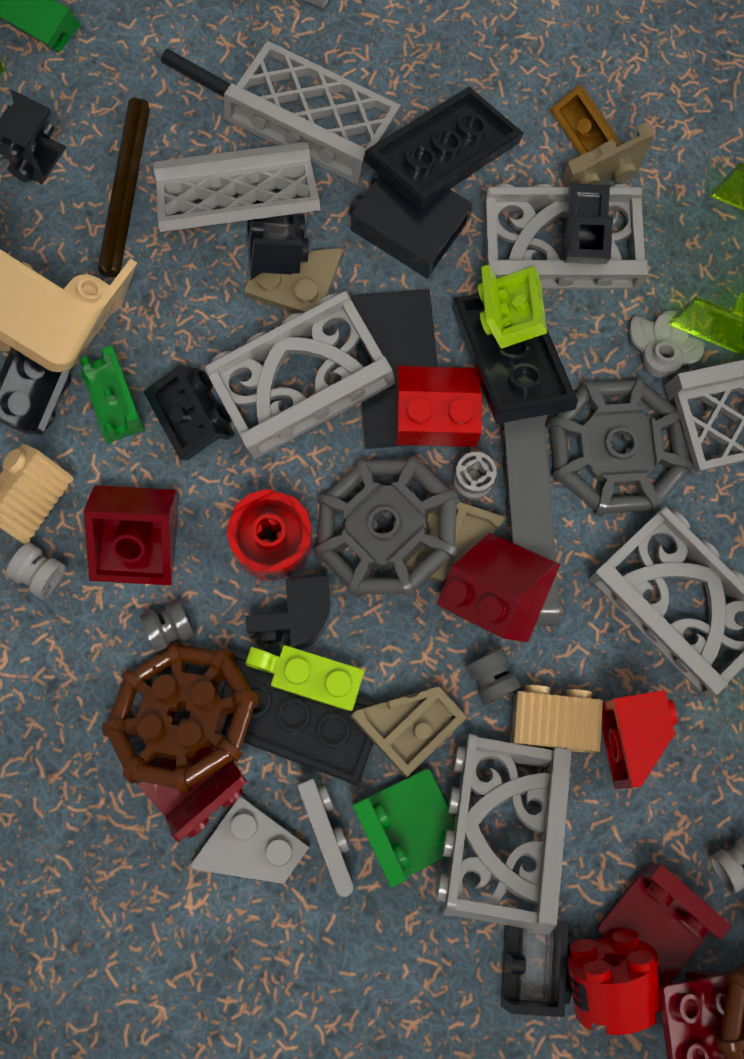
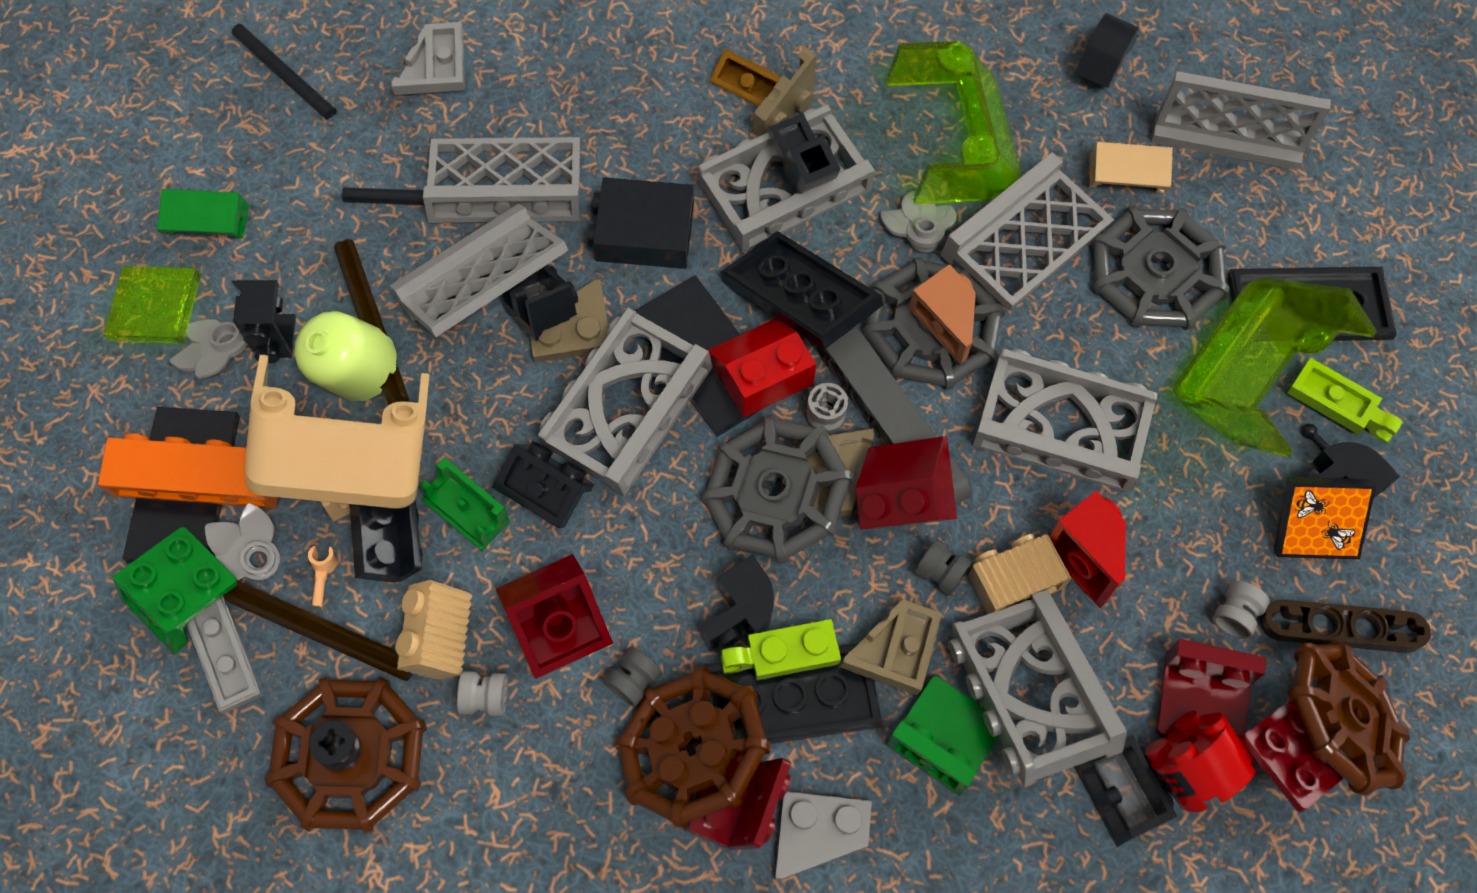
camera: 25 degrees left, 10 degrees down
(78, 207) = (345, 355): none -> yellowish green cylinder
(283, 517) = (673, 527): red brick -> none
(331, 840) = (885, 783): light grey hinge -> none
(443, 147) = (640, 152): black tile -> none
(512, 306) = (780, 249): lime bracket -> none
(635, 442) = (947, 310): none -> nougat slope

